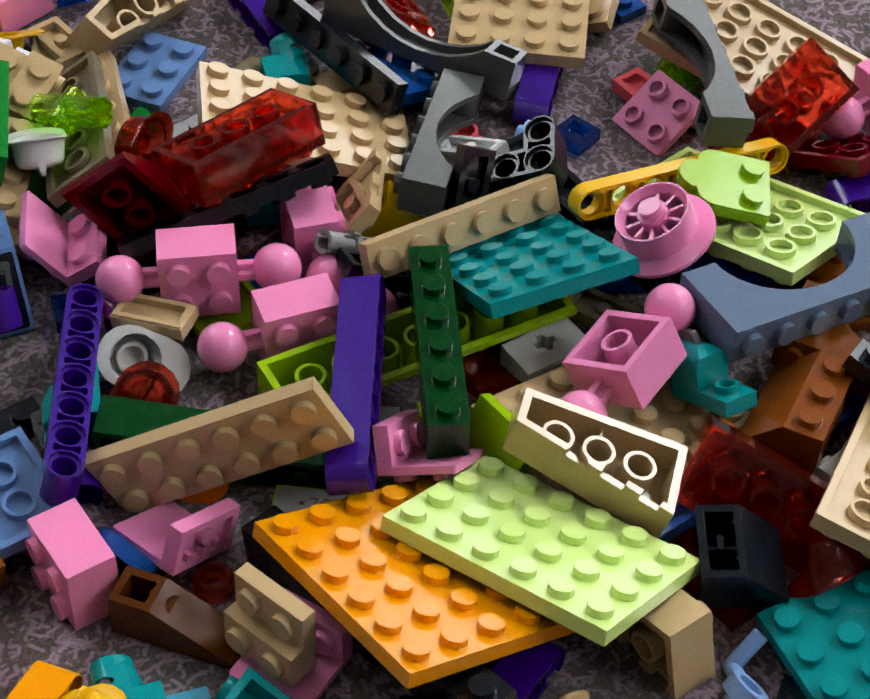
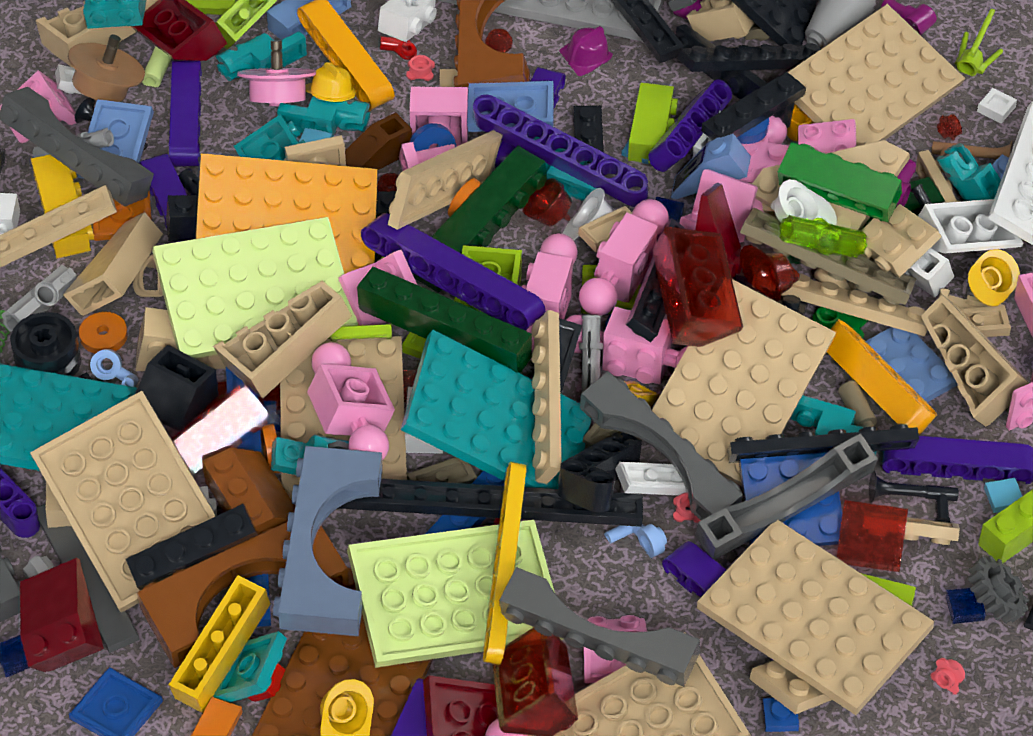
camera: 125 degrees right, 5 degrees up
(215, 43) = (879, 378): none -> light orange beam
(362, 193) = (638, 377): tan wing -> none
(470, 175) = (591, 428): black plate -> none
(579, 134) = (636, 574): clear blue plate -> none
(664, 228) = (446, 491): bright pink piece -> none
(730, 184) = (462, 567): lime plate -> none

